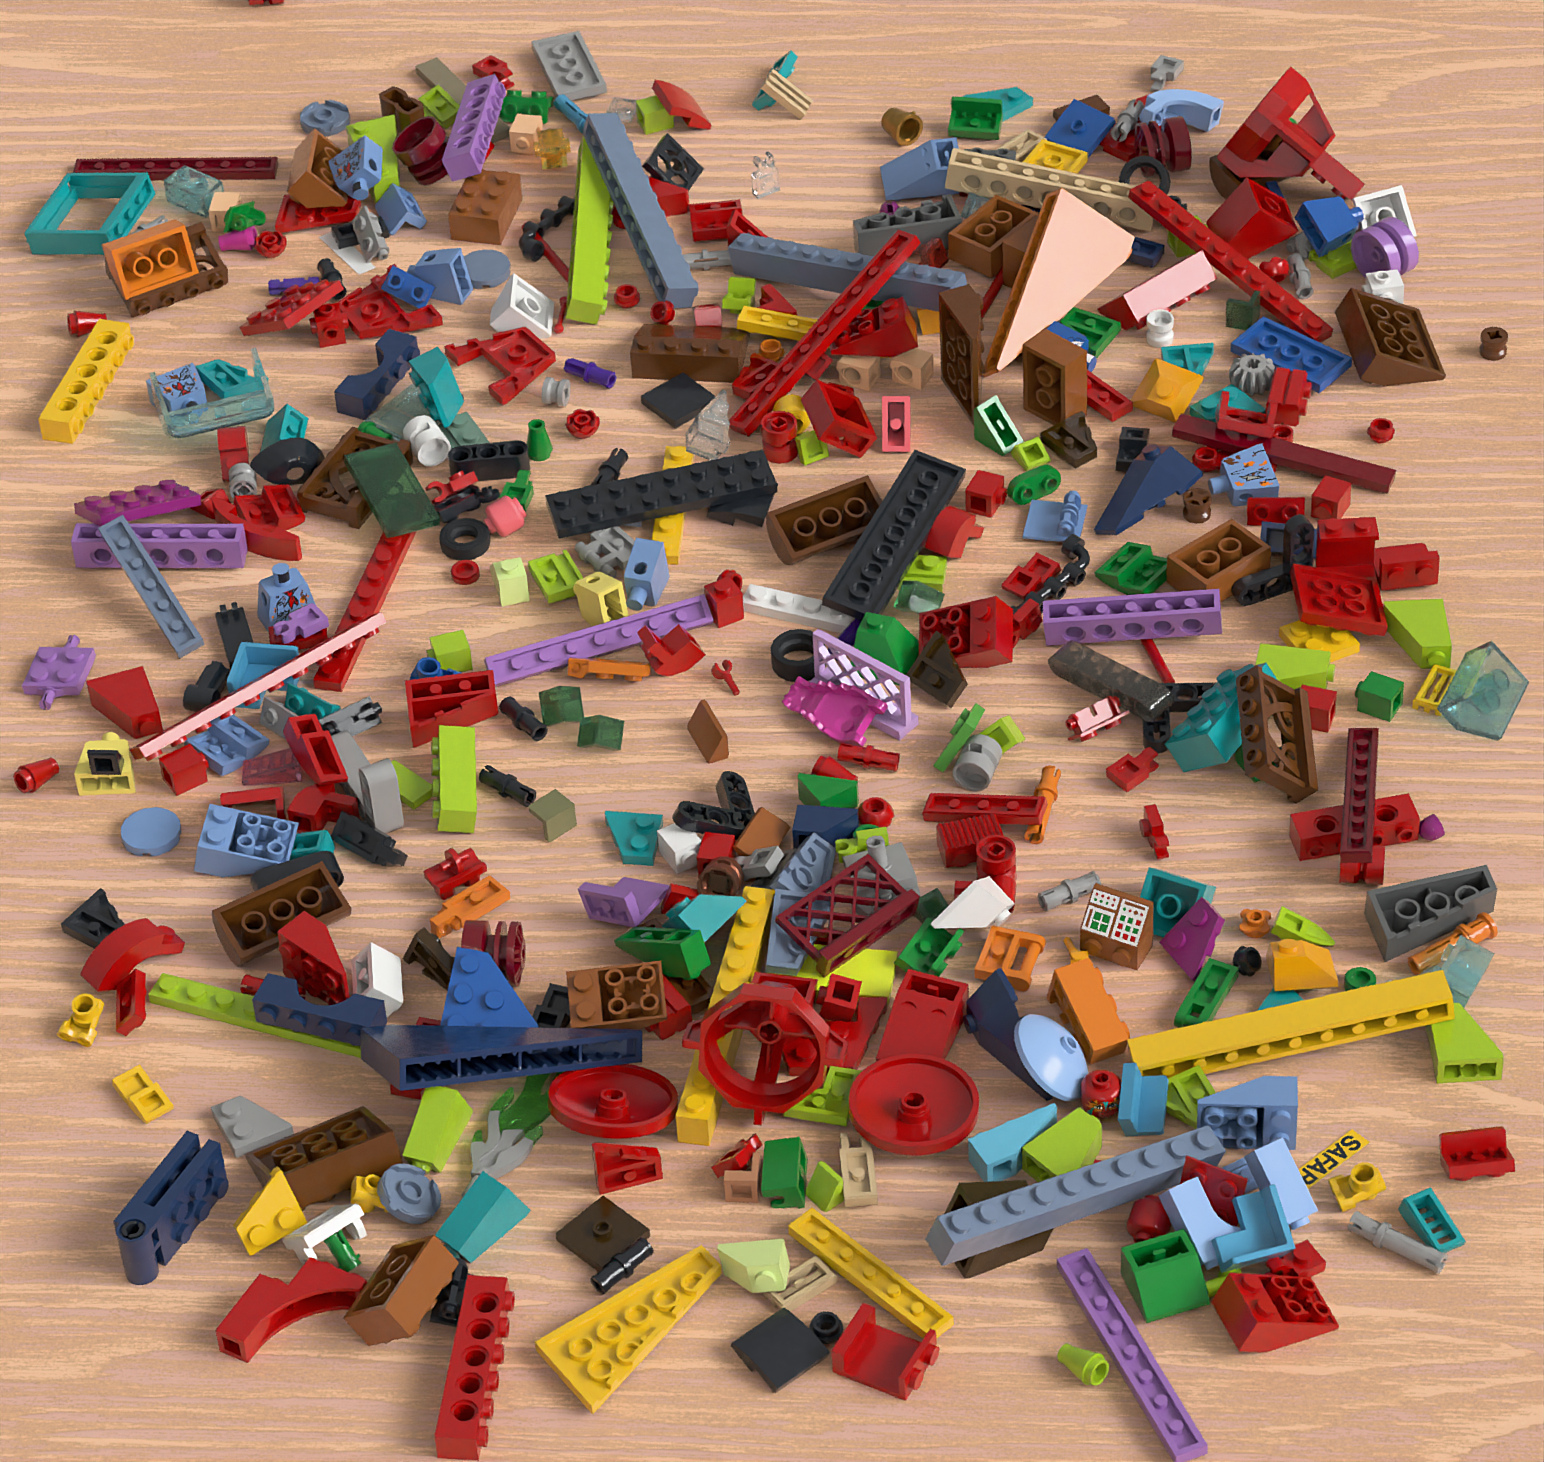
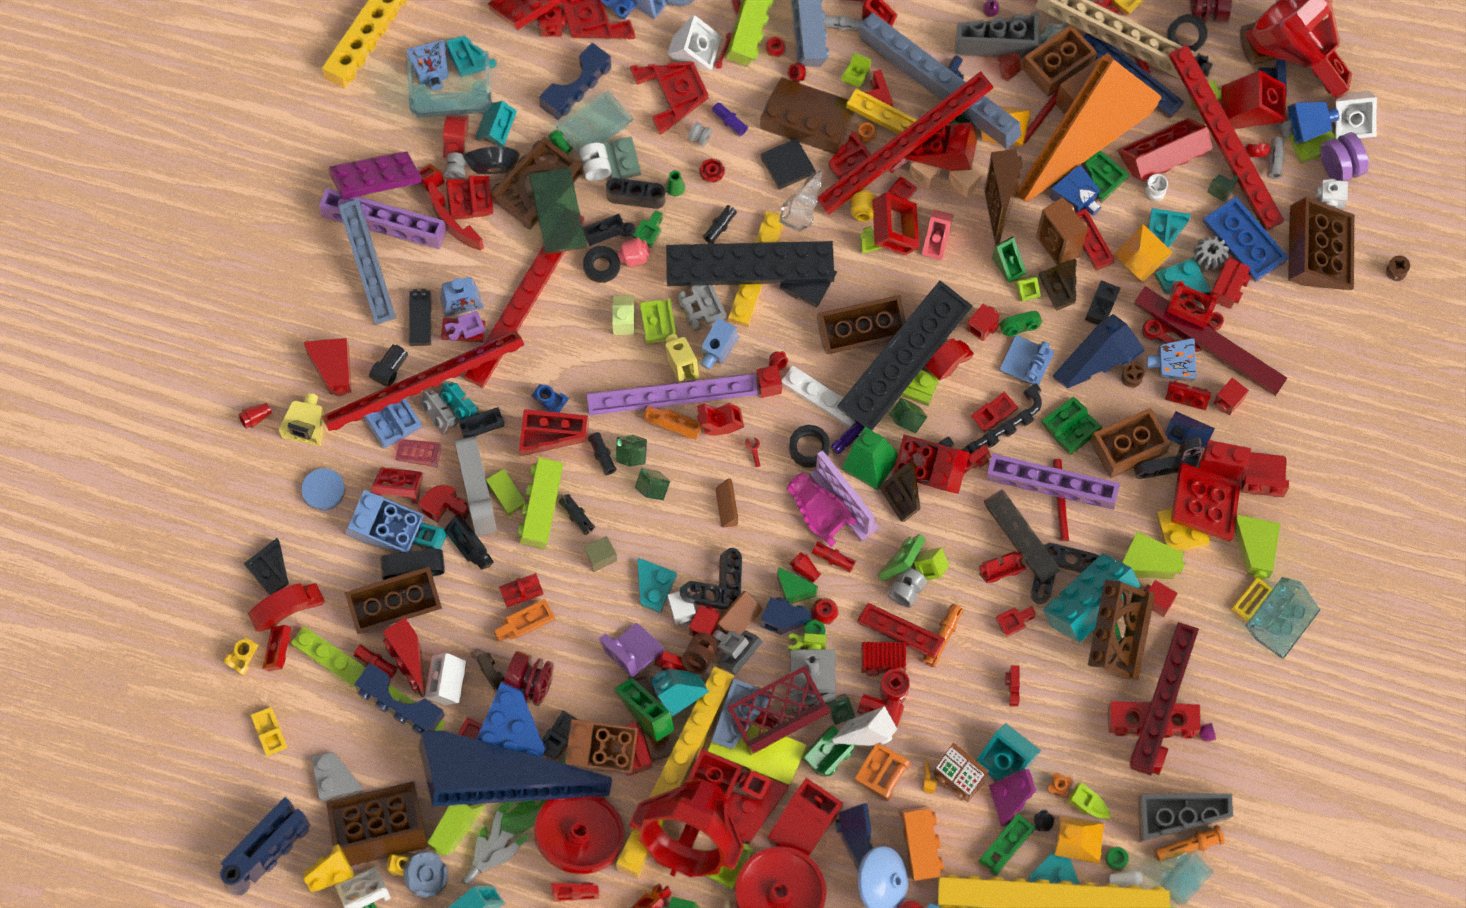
camera: 10 degrees right, 25 degrees up
(58, 671) = (290, 317): medium lavender plate -> none
(184, 769) = (357, 439): red brick -> none
(254, 661) = (426, 355): dark azure panel -> none
(314, 750) = (448, 456): red slope -> none
(437, 386) = (612, 118): teal slope -> none
(451, 651) = (564, 377): lime brick -> none
(457, 483) = (605, 212): red plate -> none
(465, 572) = (594, 296): red tile -> none
(708, 315) = (830, 80): slope -> none
(778, 436) = (849, 227): red wheel -> none
(807, 867) = (763, 658): sand blue wing -> none
(1068, 891) = (940, 720): light grey pin -> none
(1379, 696) = (1208, 599): green brick -> none
(1381, 430) = (1288, 329): red plate -> none

